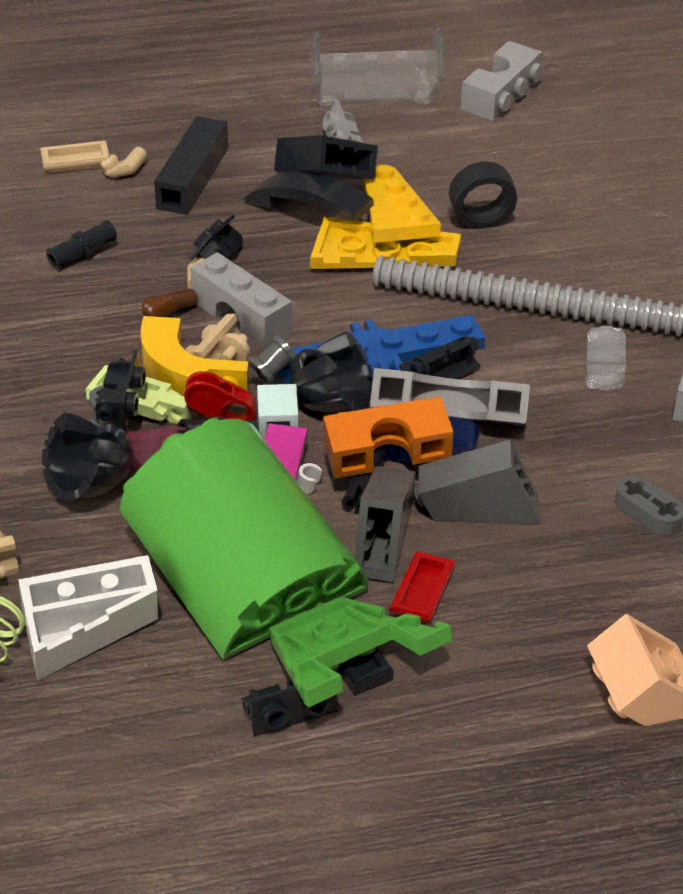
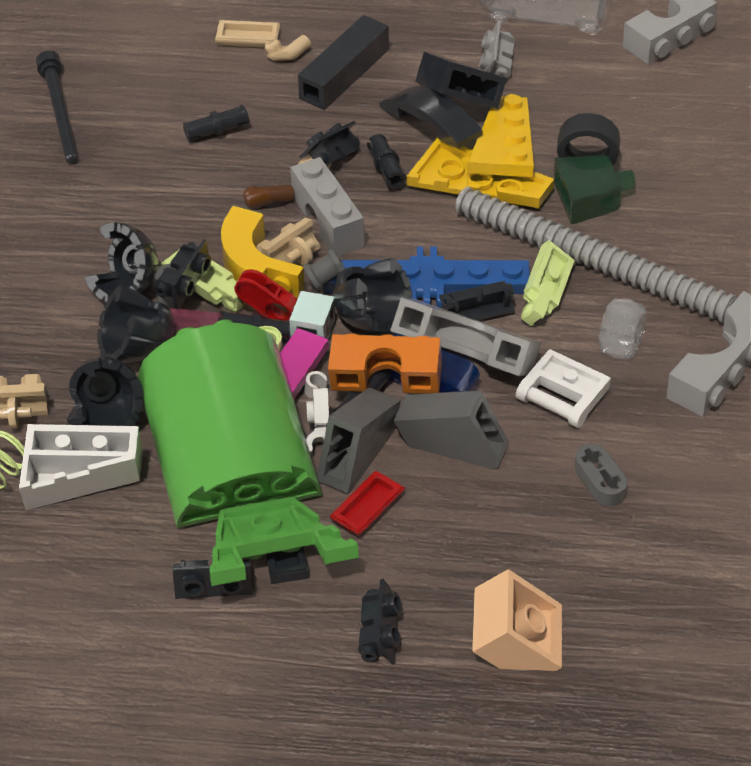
camera: 20 degrees right, 5 degrees up
(49, 390) = (130, 258): none -> black hair
(88, 529) = (105, 394): none -> black hair
(280, 249) = (386, 161): none -> black pin
(334, 507) = (317, 413): none -> white plate
(498, 235) = (590, 186): none -> clear green torso
(502, 332) = (546, 282): none -> yellowish green hinge
(507, 721) = (382, 610): none -> black hinge
(573, 420) = (567, 379): none -> white plate

